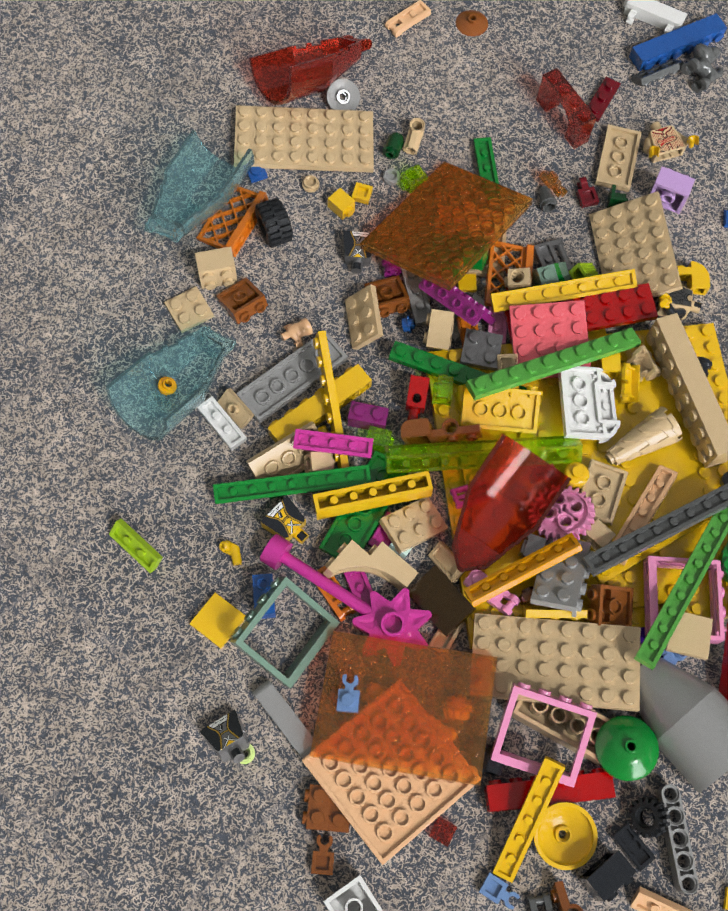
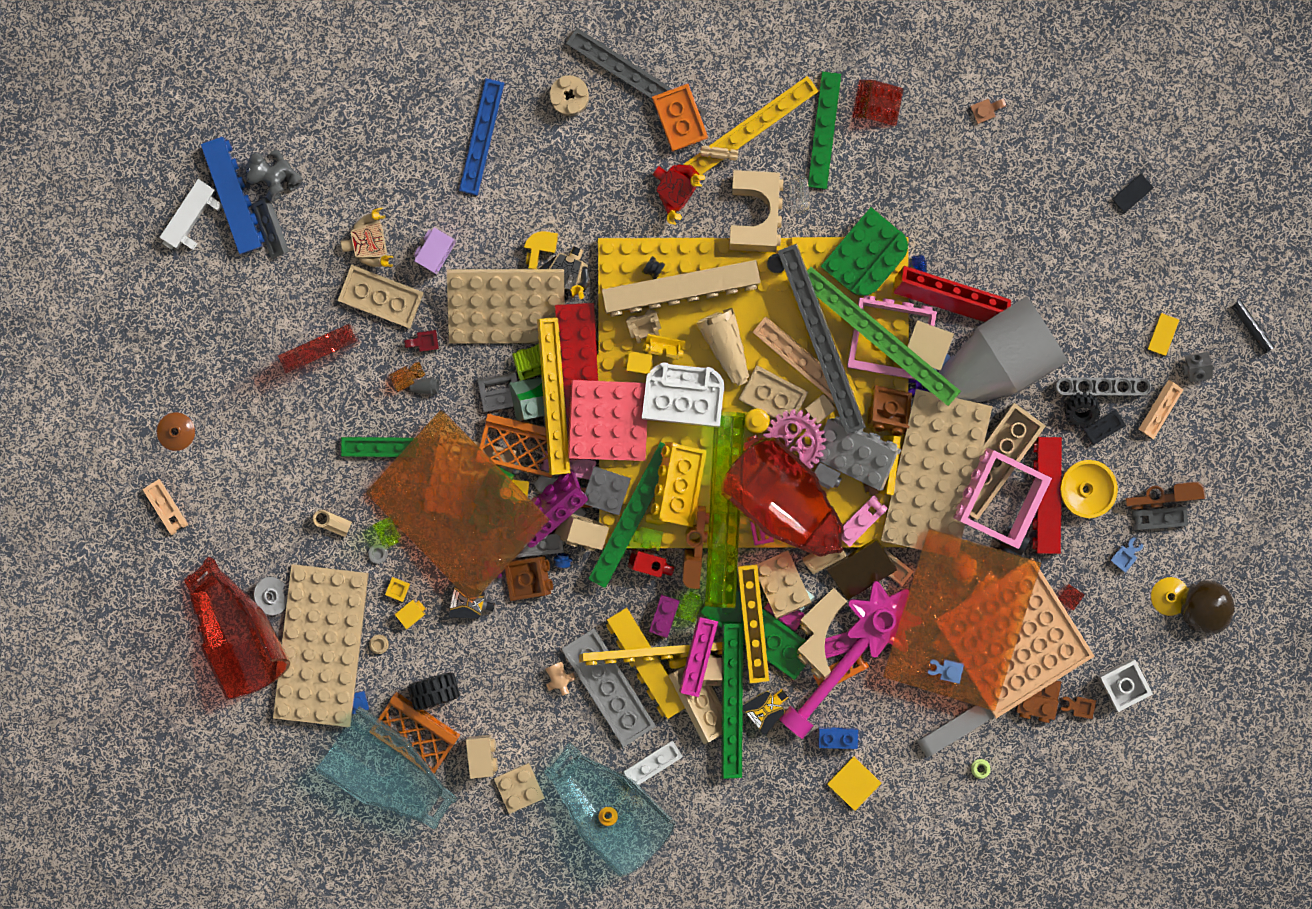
camera: 75 degrees left, 20 degrees up
(135, 545) = (772, 857): lime plate -> none
(227, 737) = (967, 783): torso -> none
(232, 550) = (786, 763): yellow arm -> none
(235, 408) = (638, 748): tan plate -> none
(242, 300) = (517, 731): dark orange plate -> none
(309, 650) = (896, 701): sand green window -> none
(363, 317) = (553, 607): tan plate -> none
(393, 145) = (340, 547): dark green brick -> none
(506, 360) = (628, 467): tan plate -> none
(522, 274) = (537, 432): tan brick -> none
(523, 569) = (850, 492): light orange plate -> none
(528, 819) = (1072, 521): yellow plate -> none
(552, 363) = (642, 425): bright green plate -> none
(603, 97) = (298, 298): dark red plate -> none
(608, 876) = (1127, 458): black brick -> none
(613, 751) = (1008, 426): green dish -> none
(615, 198) = (434, 308): dark green panel -> none

